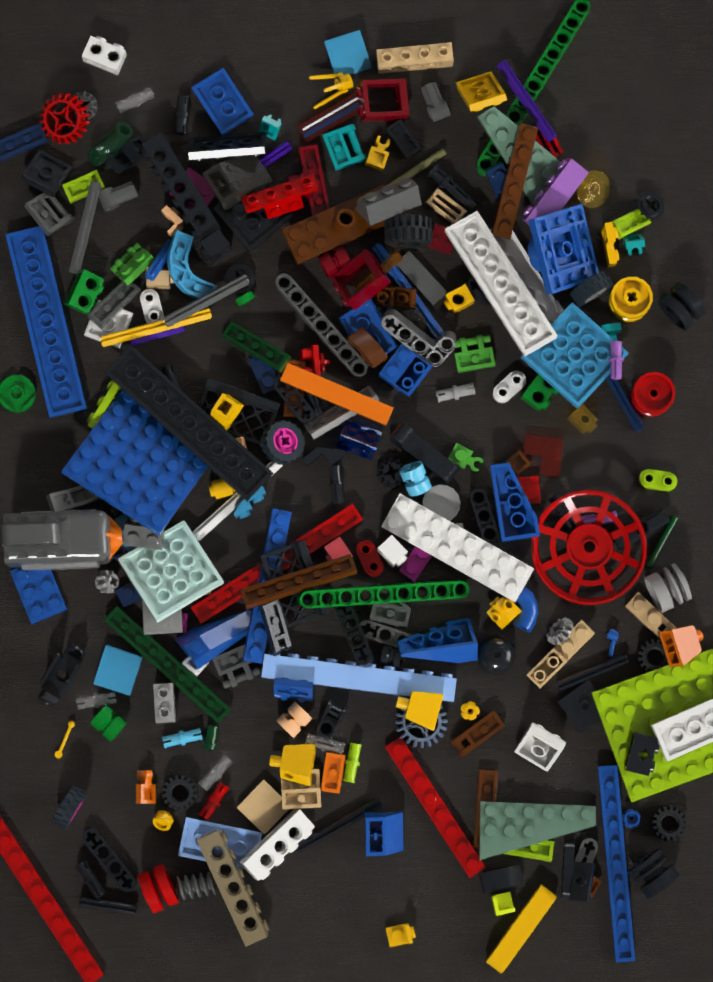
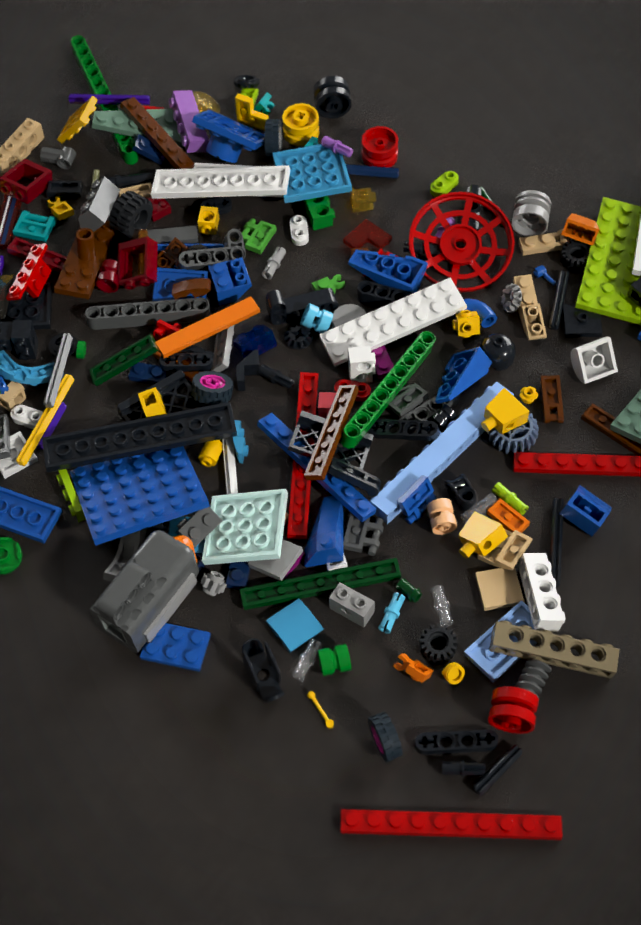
camera: 45 degrees left, 25 degrees down
(213, 801) = (465, 622): red pin -> none

